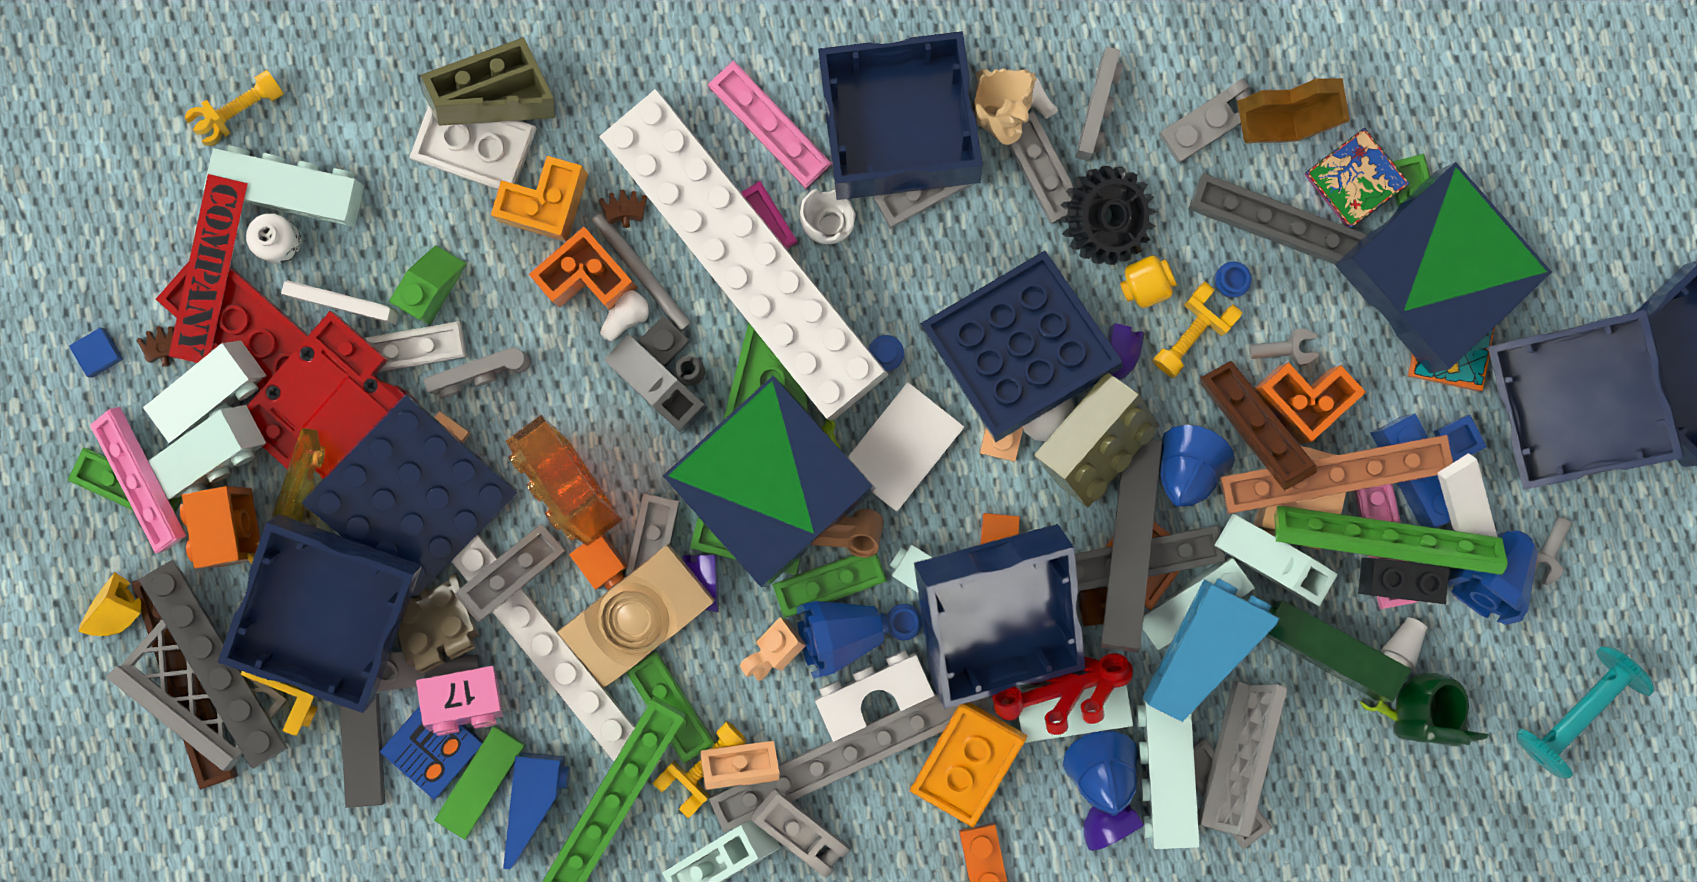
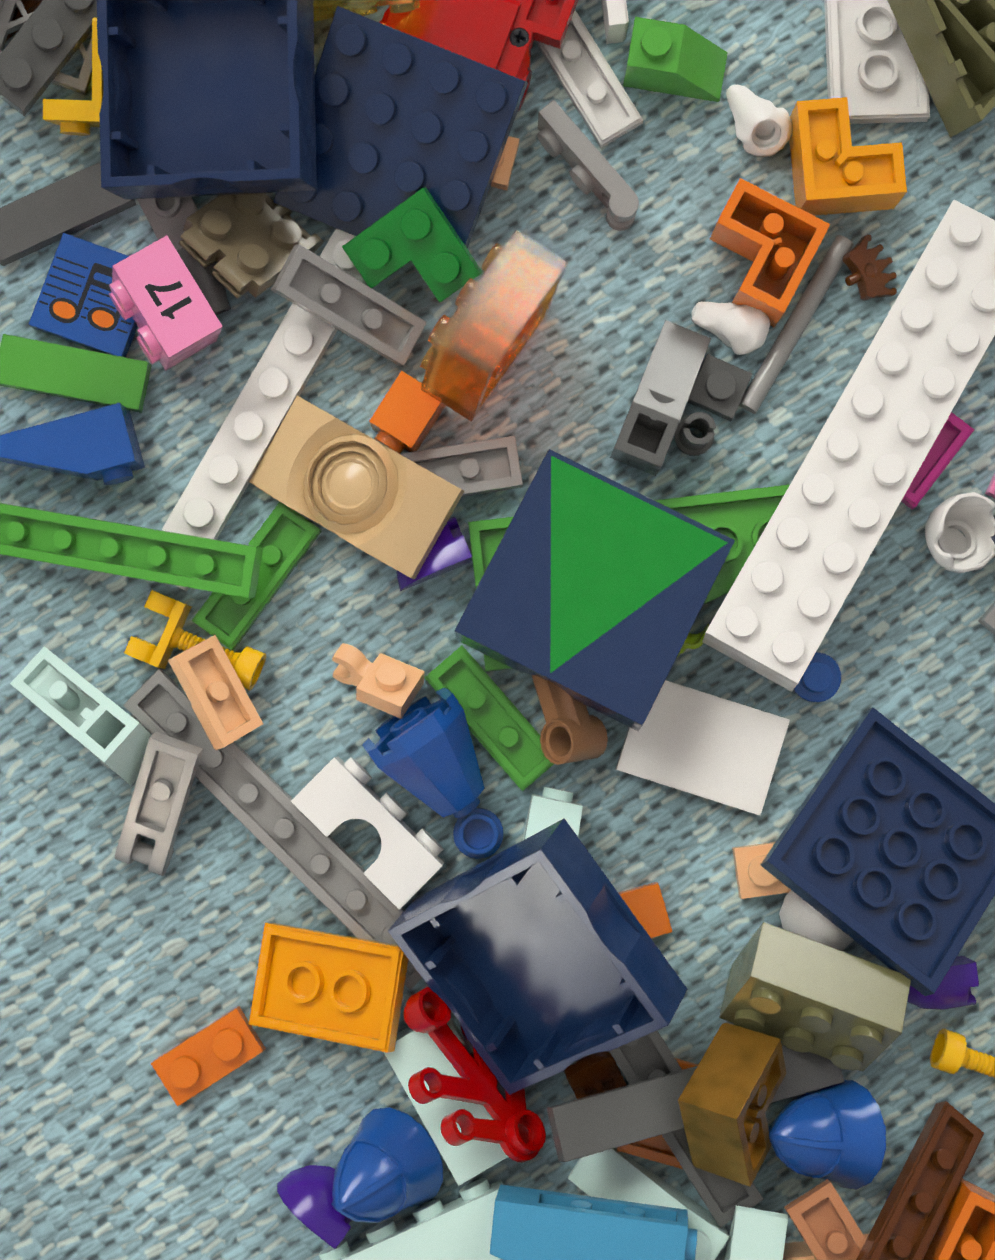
camera: 70 degrees right, 0 degrees up
(479, 507) = (417, 234): none -> green plate
(494, 244) = (758, 122): none -> white animal
(1142, 524) = (729, 1101): none -> pearl gold panel

